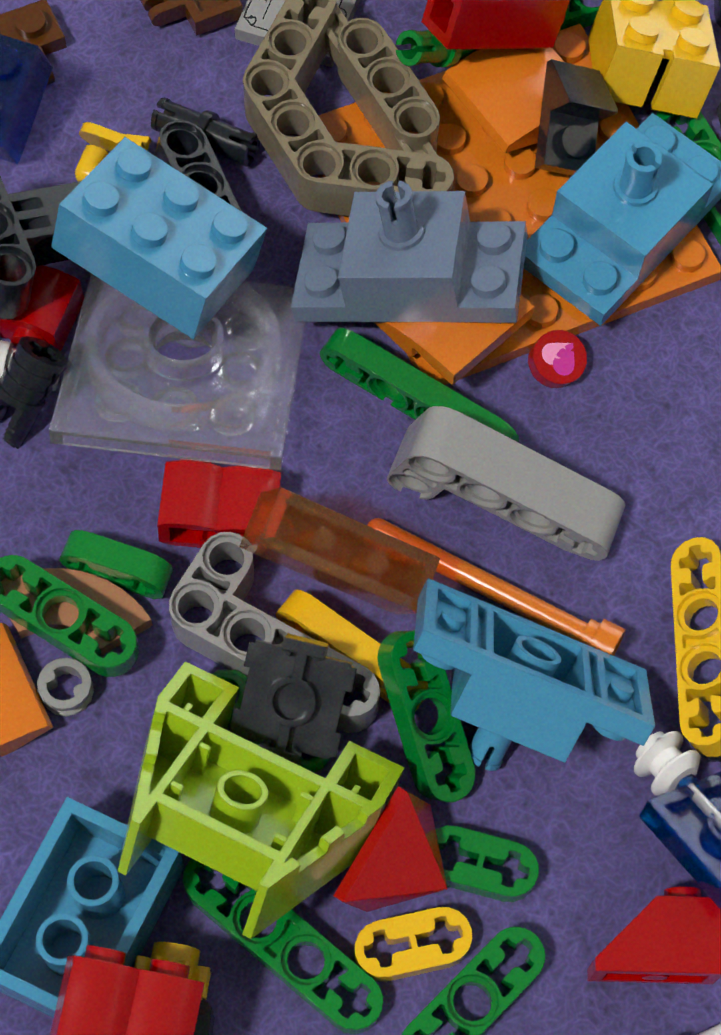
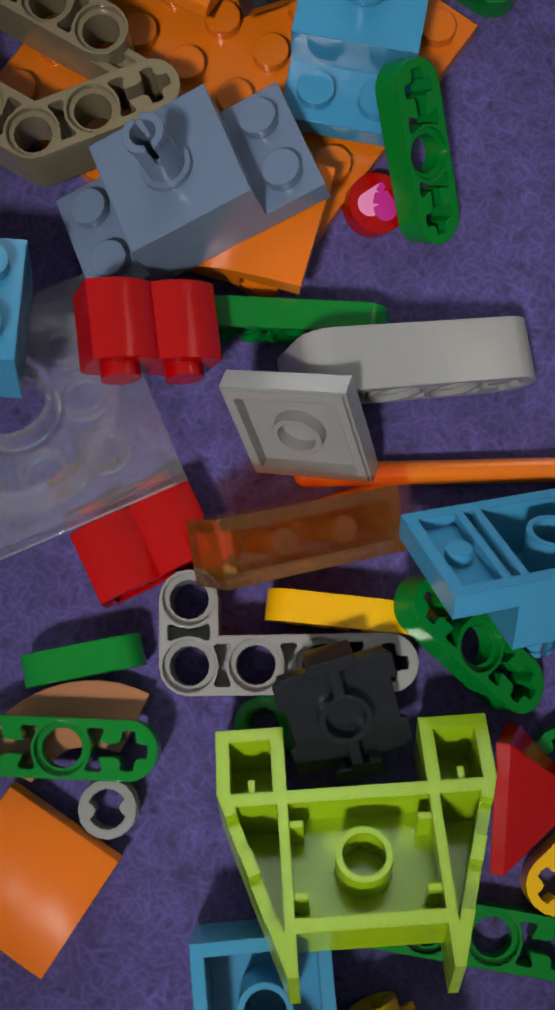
camera: 25 degrees left, 15 degrees up
(317, 339) = (146, 328): none -> red brick
(392, 475) = (301, 424): none -> light grey tile
(597, 312) = (426, 106): none -> green beam

